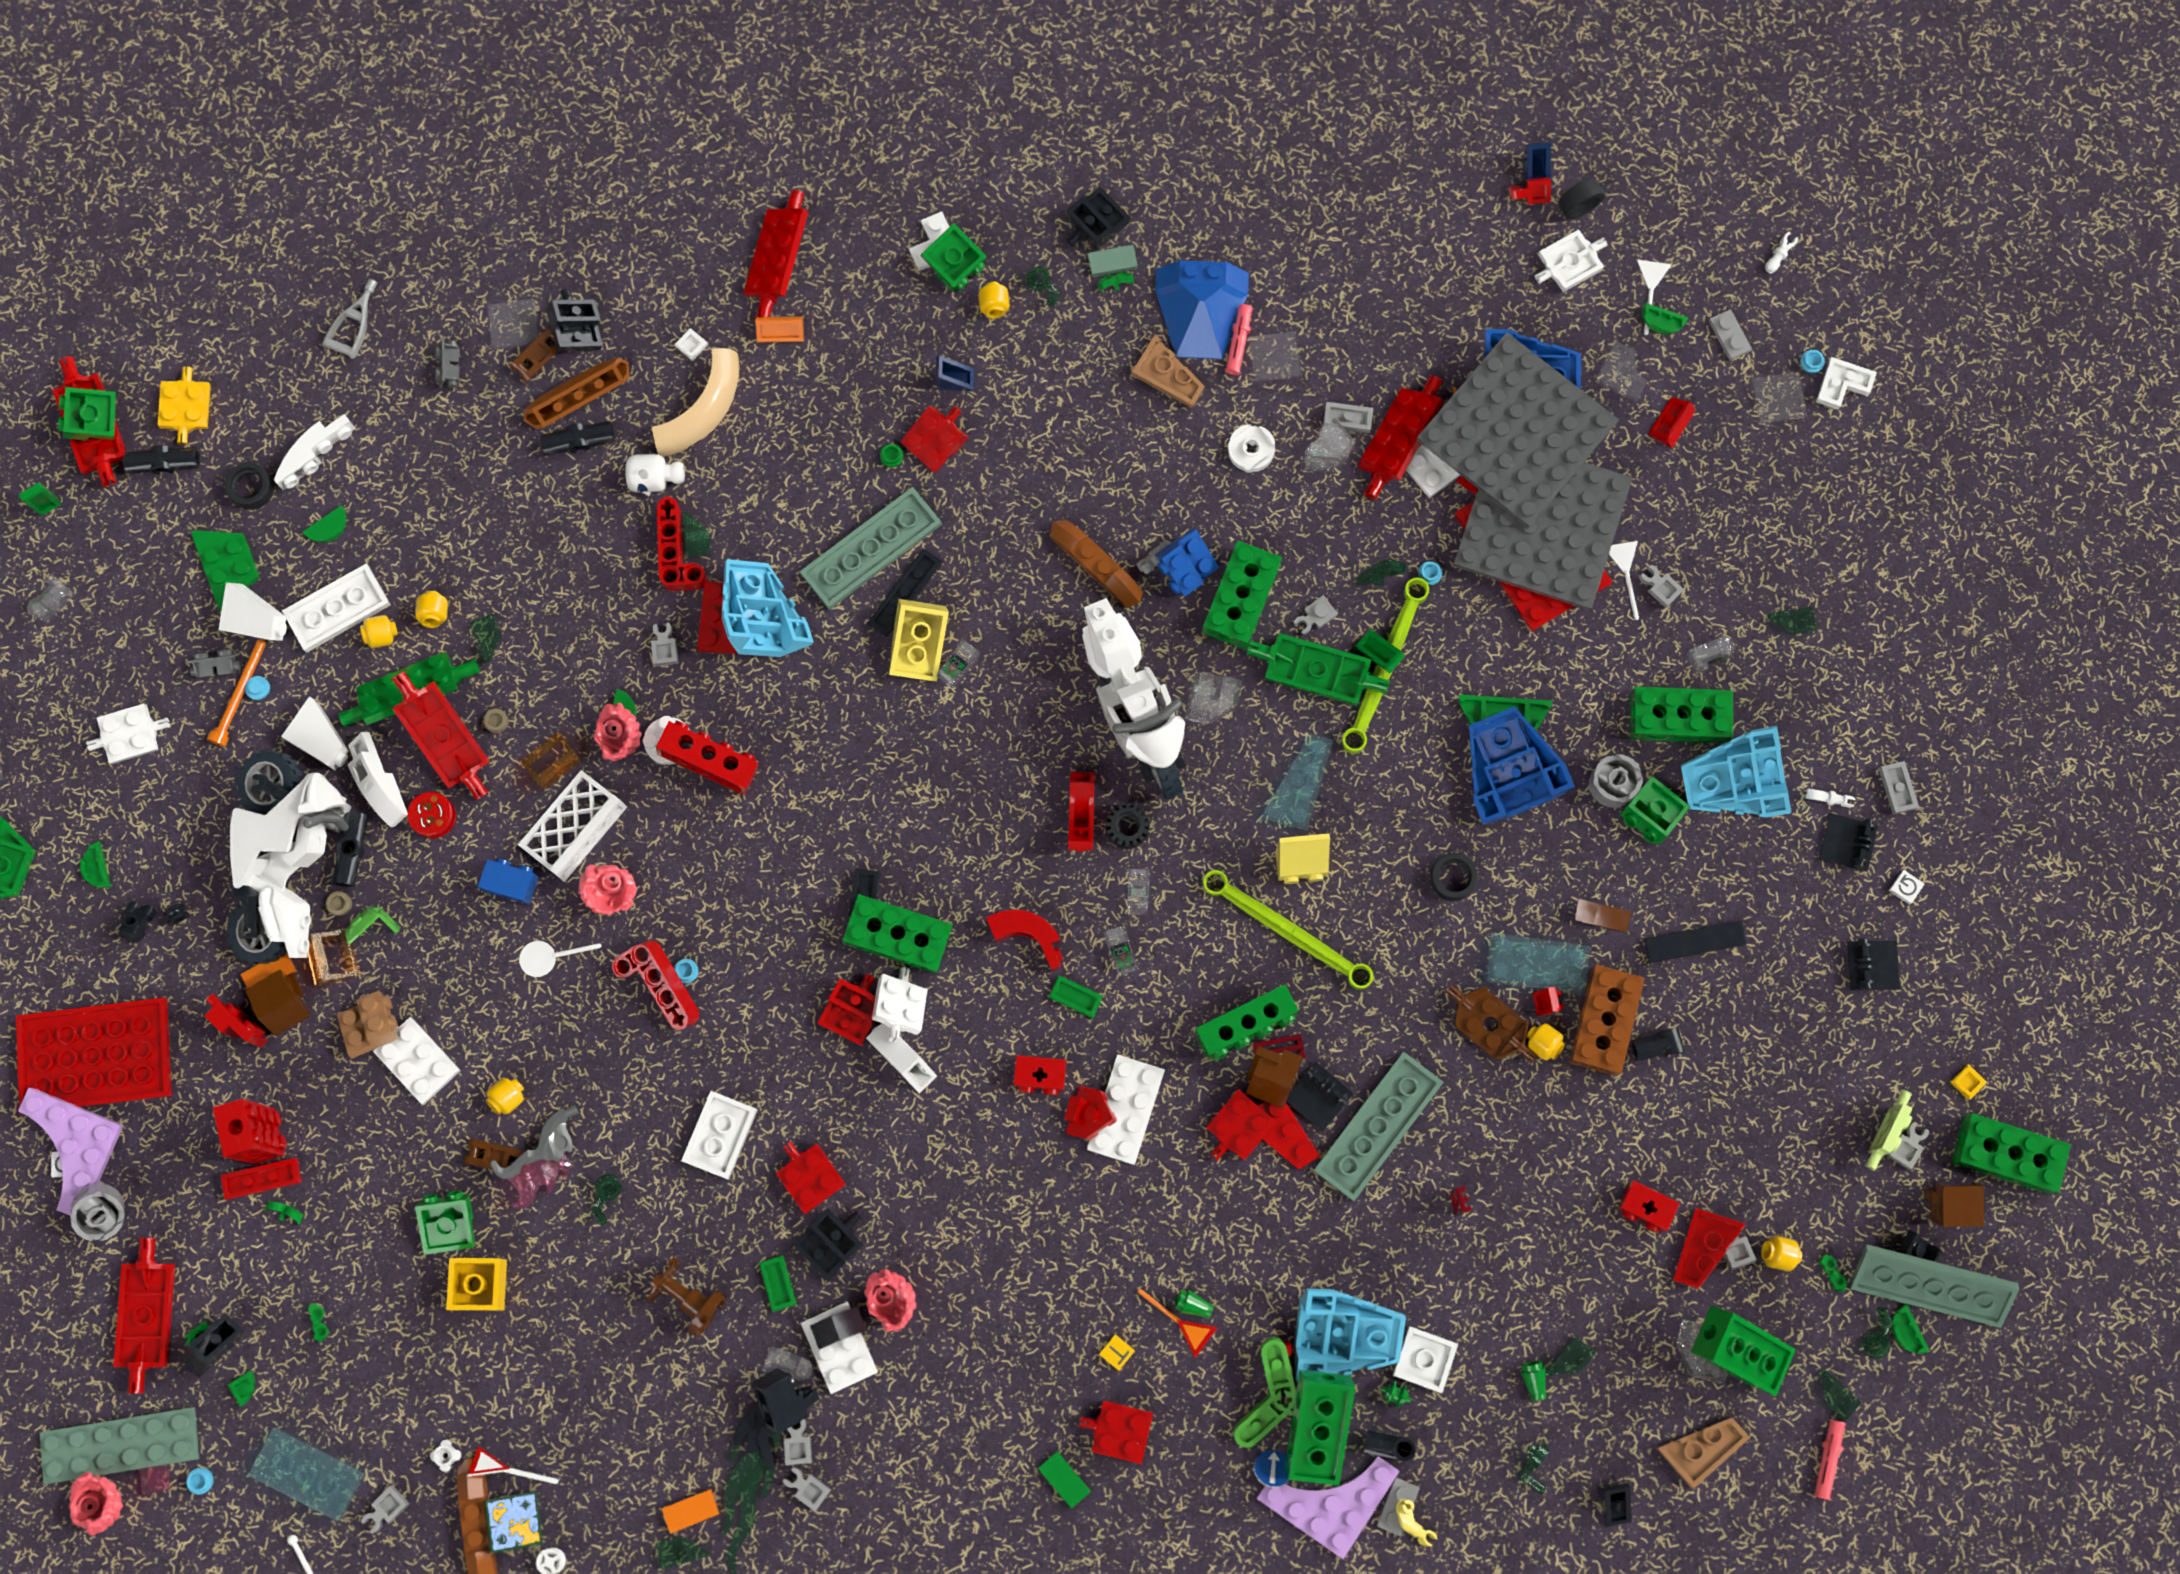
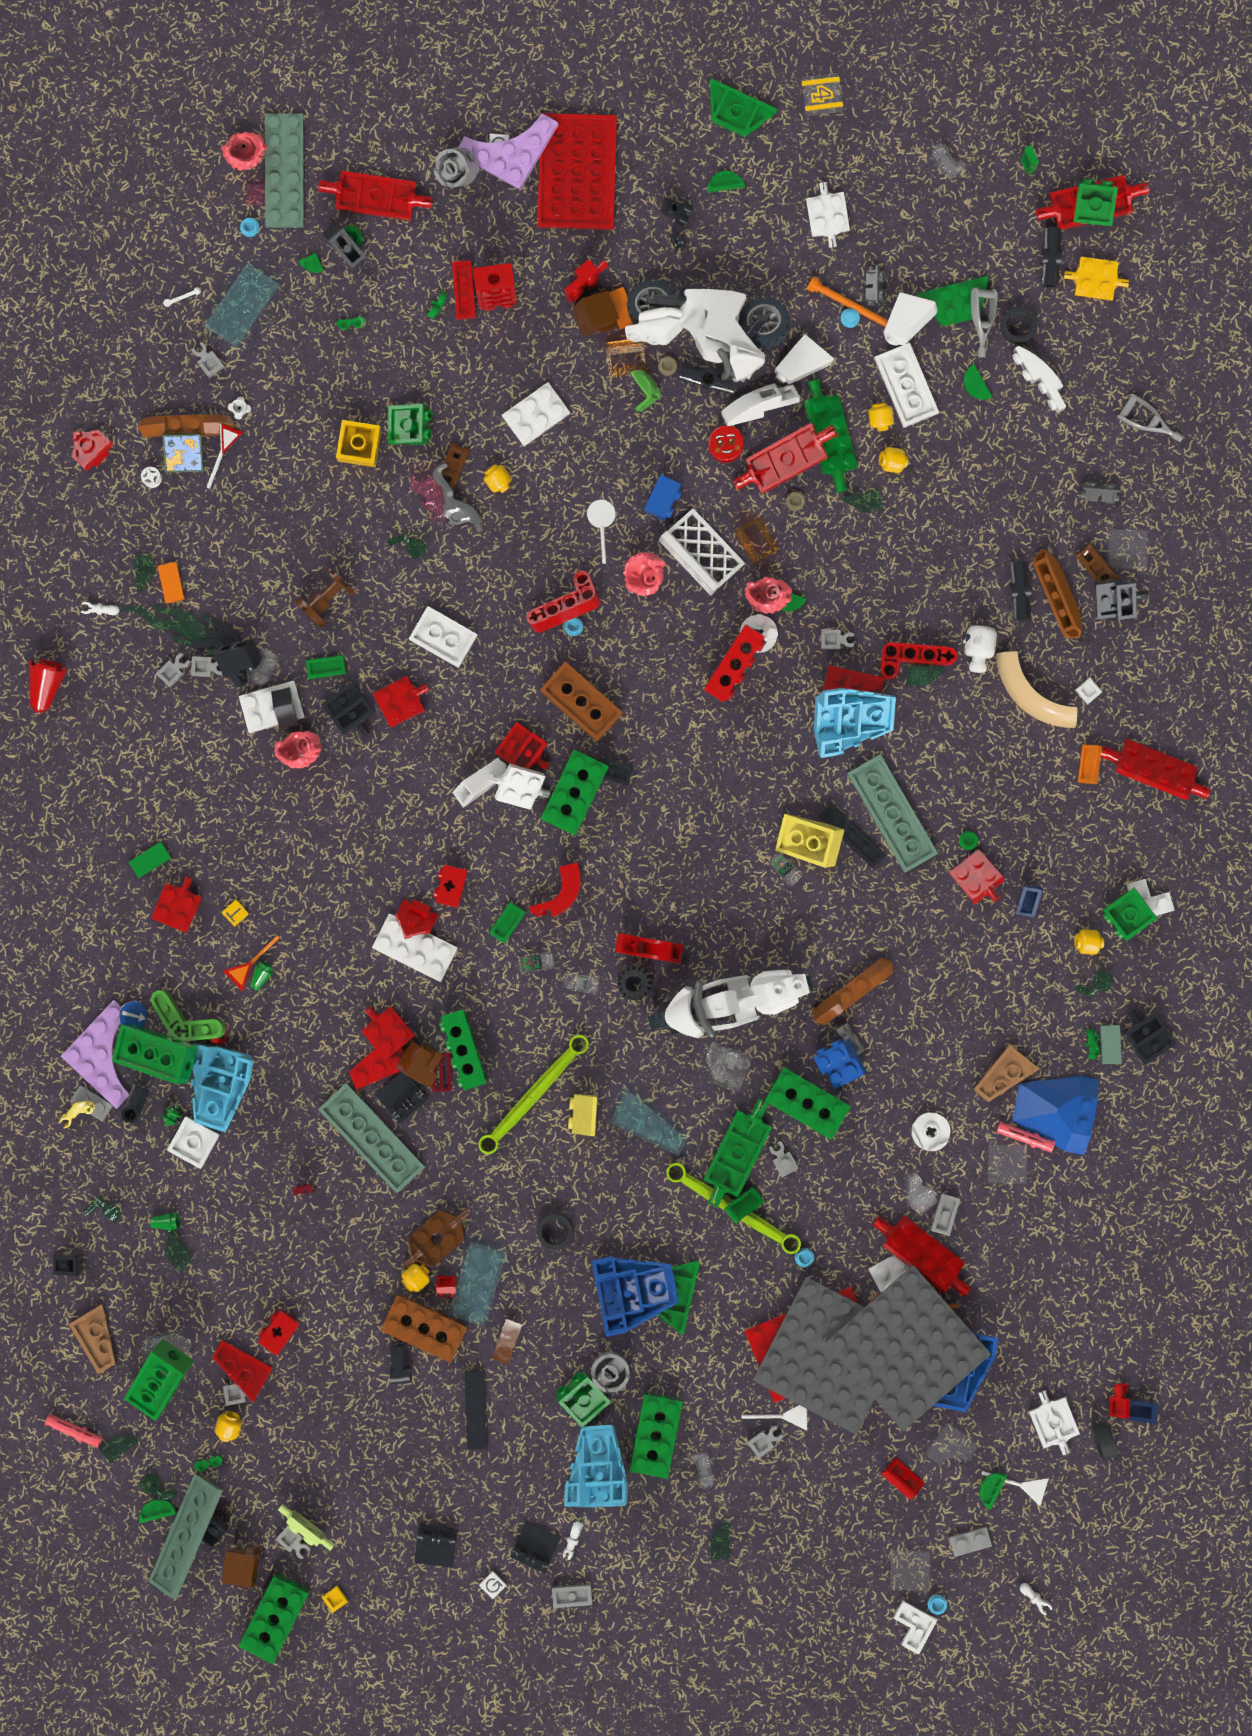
camera: 95 degrees right, 10 degrees up
(254, 528) = (979, 325): none -> light grey piece
(368, 1024) = (568, 380): medium nougat plate -> none
(777, 927) = (581, 689): none -> dark orange brick
(1377, 572) = (809, 1213): clear green slope -> none

